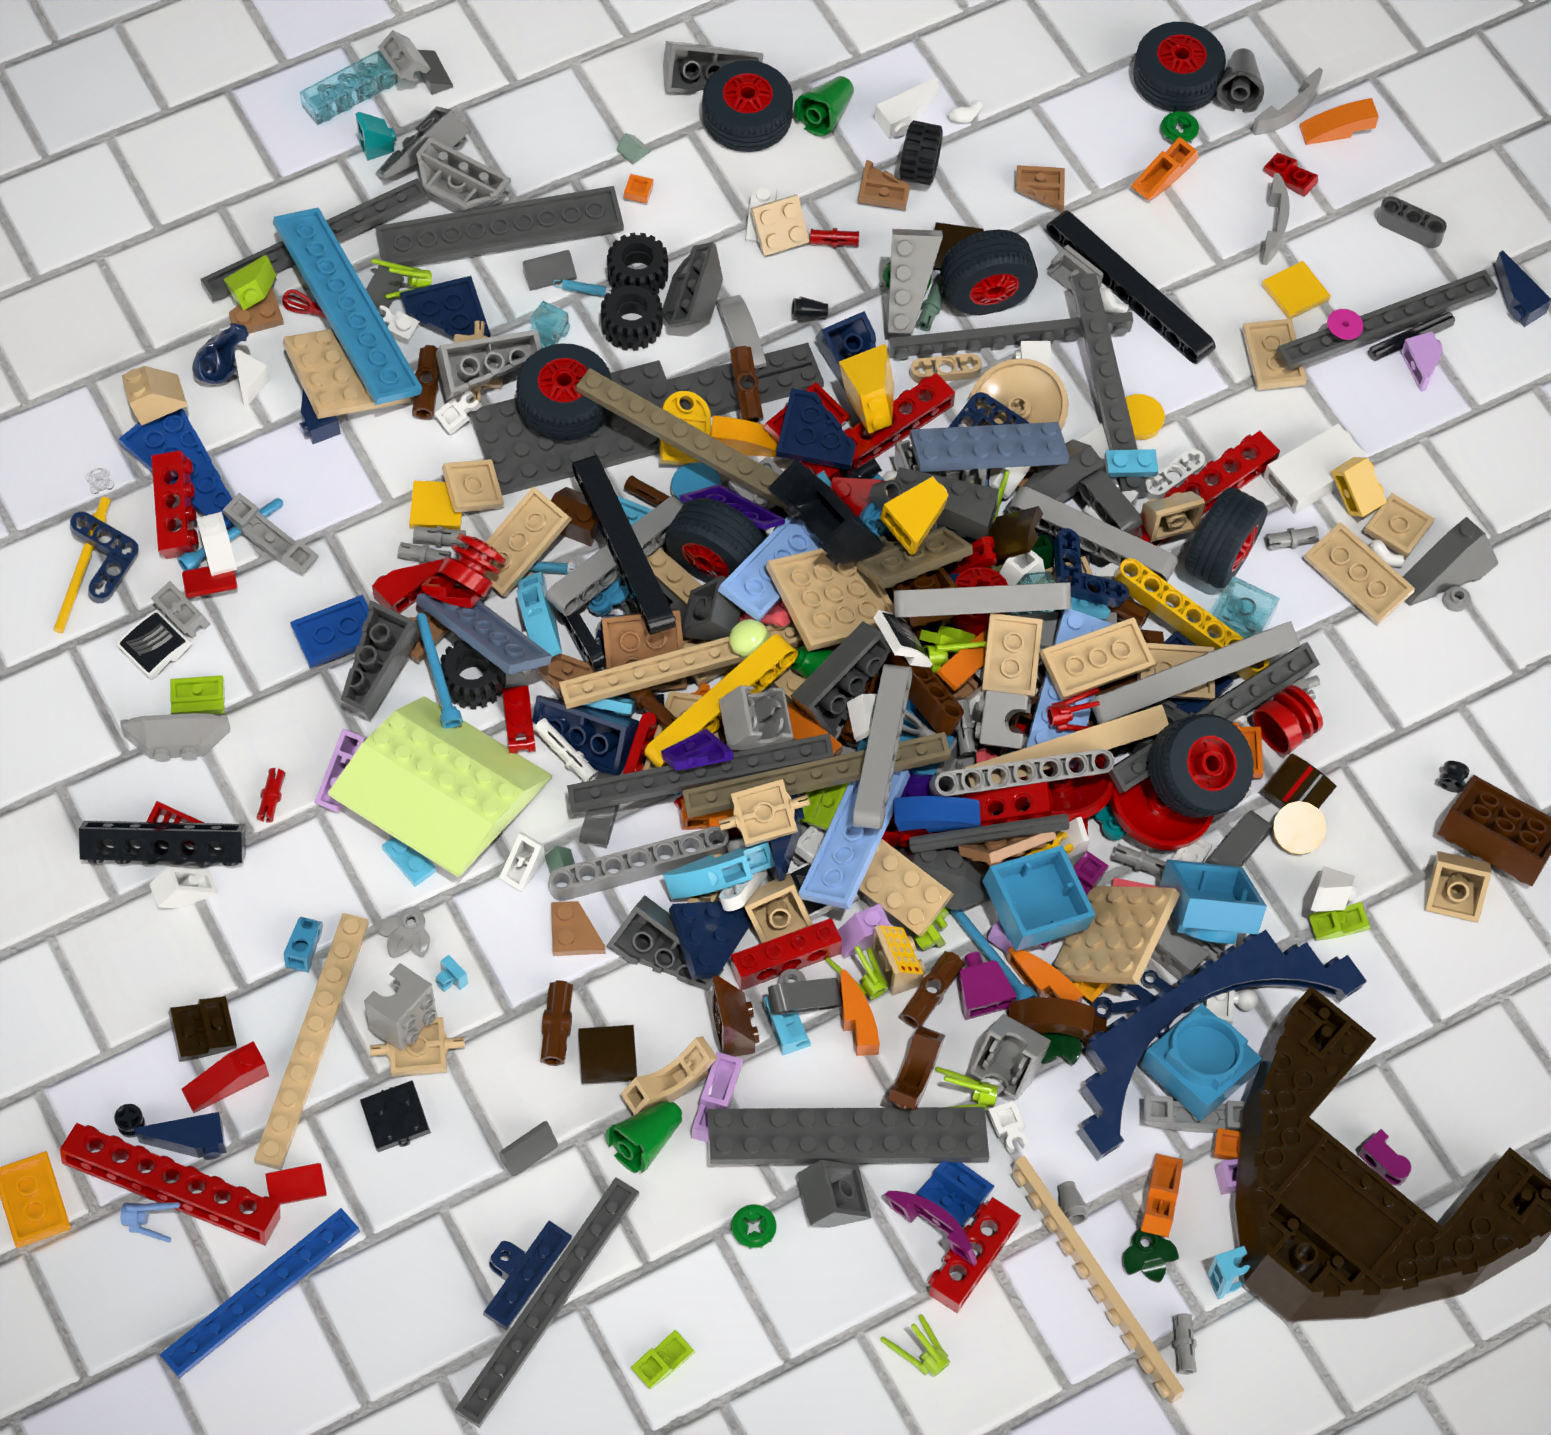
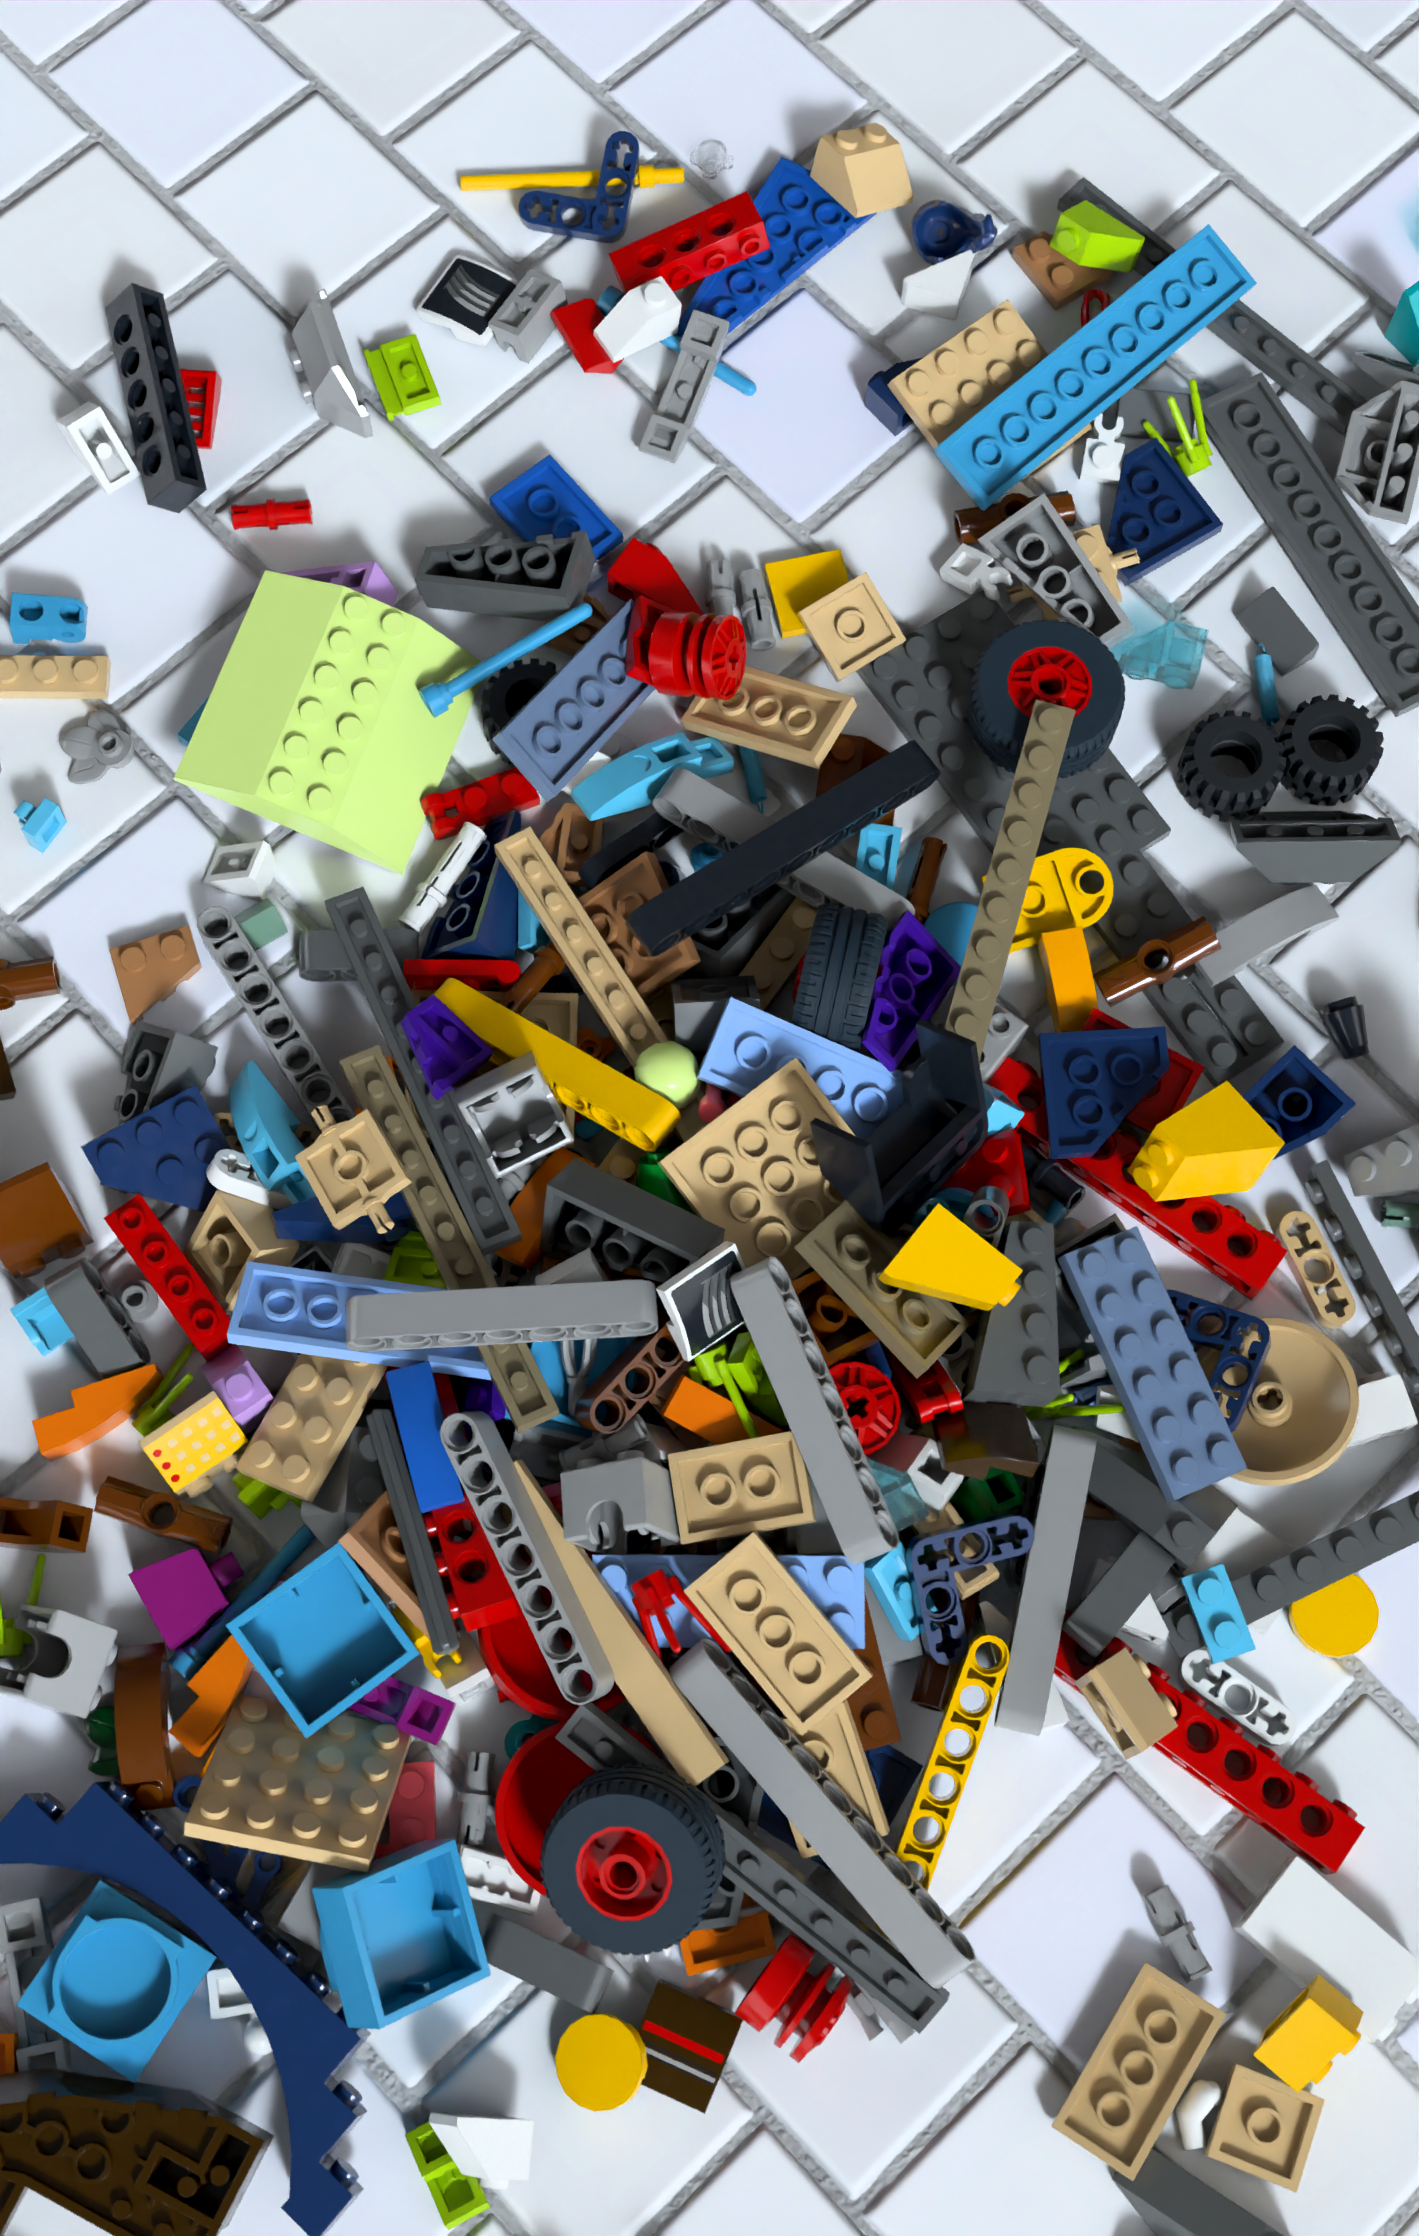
camera: 75 degrees right, 10 degrees up
(1225, 537) = (1110, 1809): black wheel -> none
(1246, 608) = (987, 1875): clear light blue brick -> none

